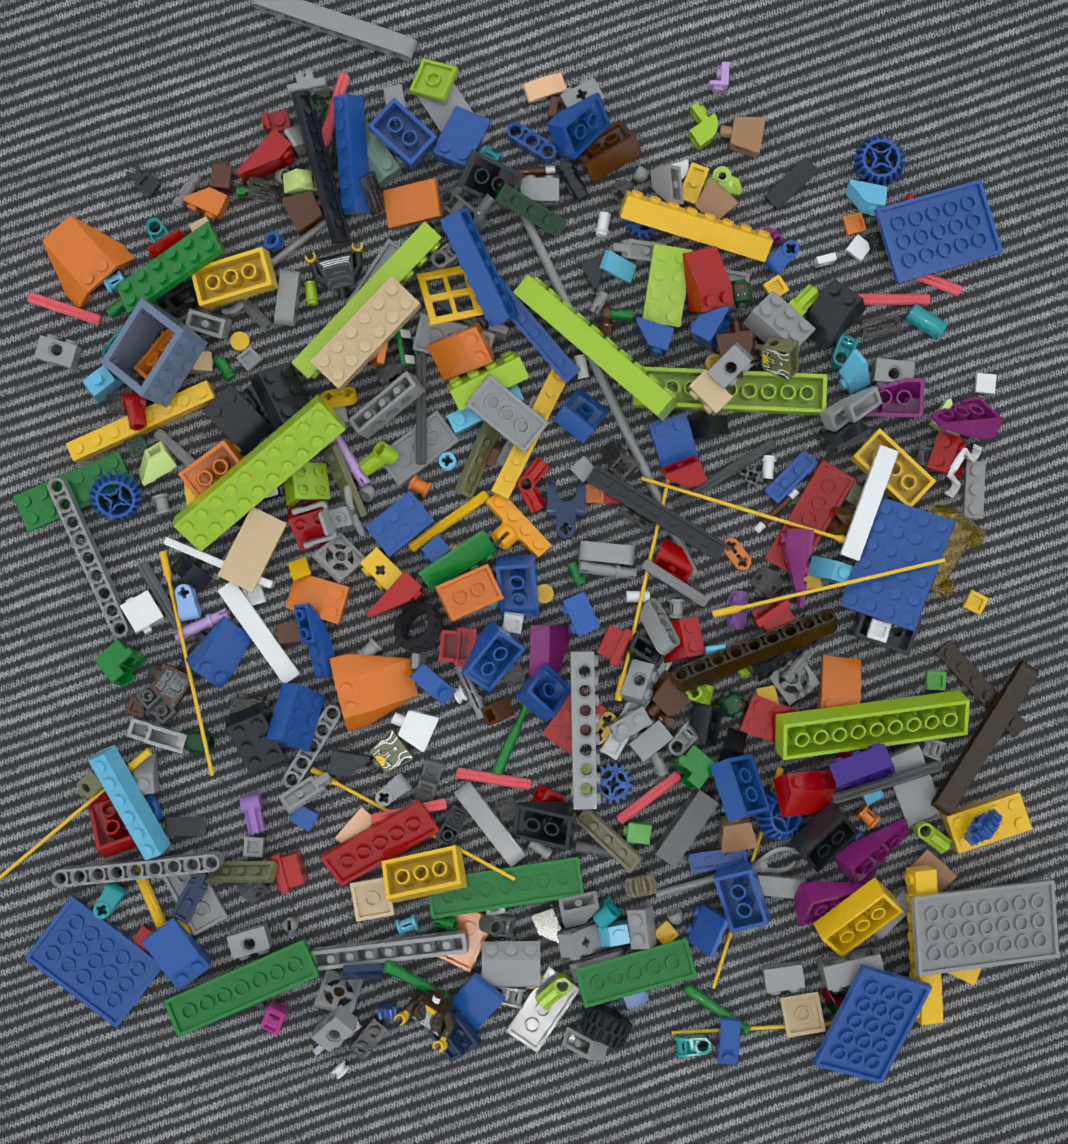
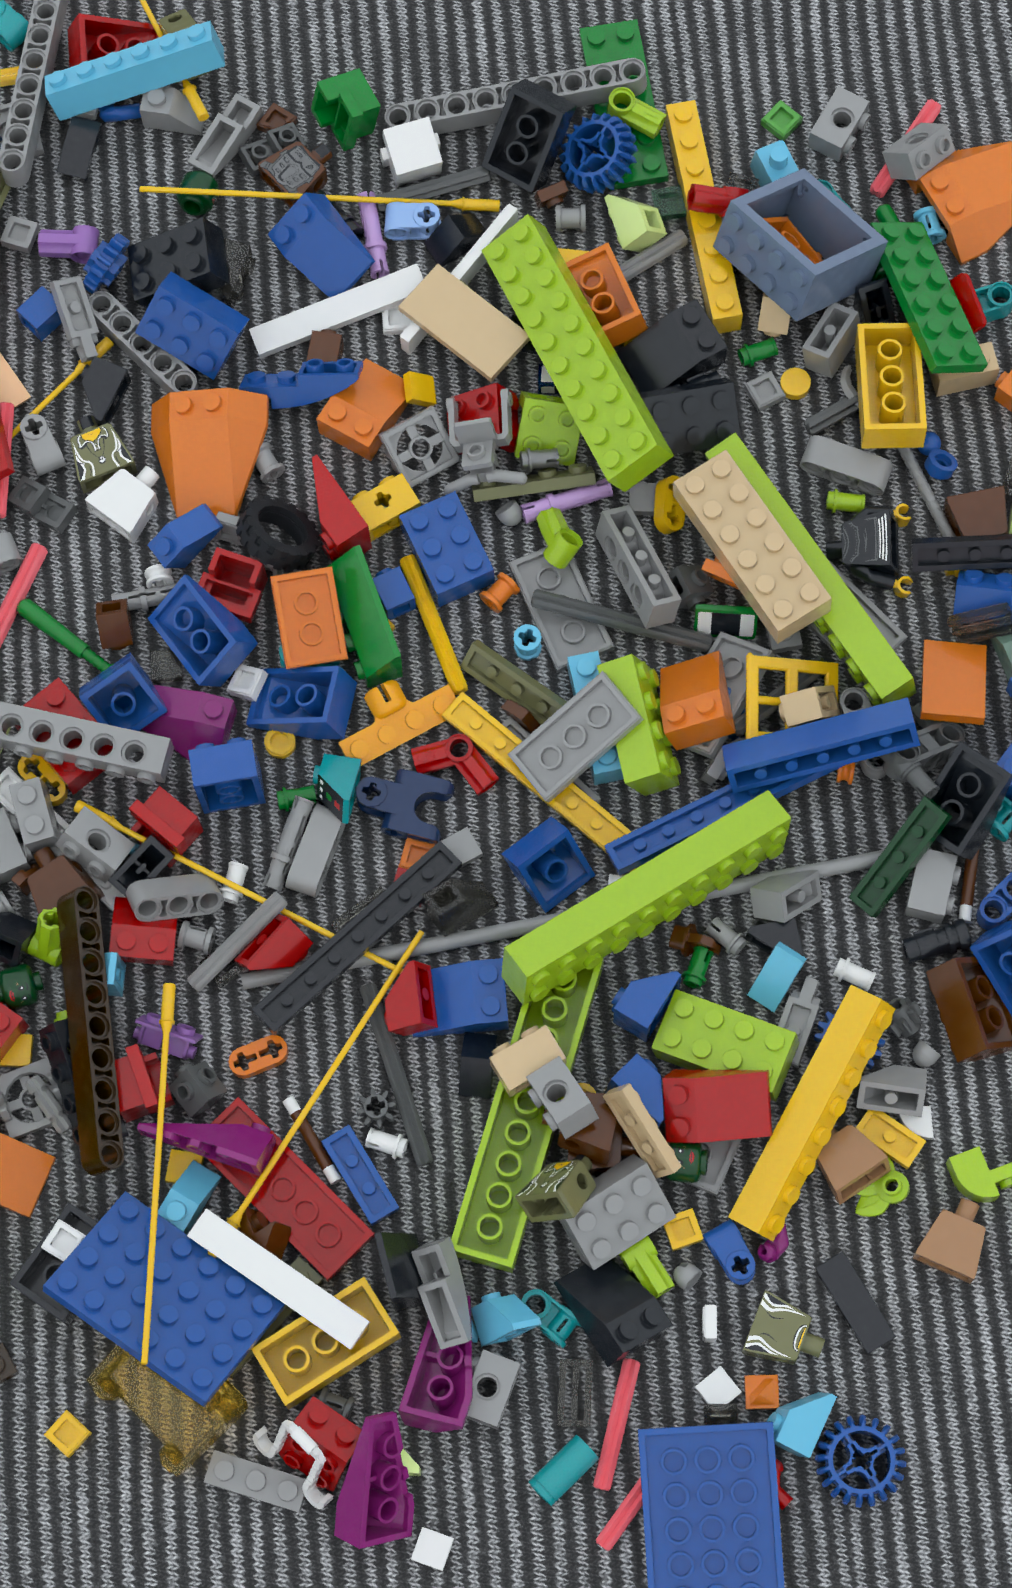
camera: 110 degrees right, 15 degrees down
(62, 390) = (781, 120): none -> bright green tile
(68, 297) = (918, 151): none -> light grey brick
(83, 476) = (637, 114): none -> lime piece
(116, 540) = (528, 135): none -> black brick
(149, 519) = (551, 195): none -> reddish brown plate
(264, 784) = (105, 263): none -> blue gear
(330, 482) = (538, 459): none -> flat silver pin
(452, 282) = (809, 705): none -> tan slope
(565, 550) = (337, 784): none -> teal slope
(568, 273) = (785, 895): none -> light grey slope
(735, 316) = (642, 1130): none -> tan plate
(800, 280) = (686, 1275): none -> light grey hinge
(820, 220) = (780, 1332): none -> olive torso

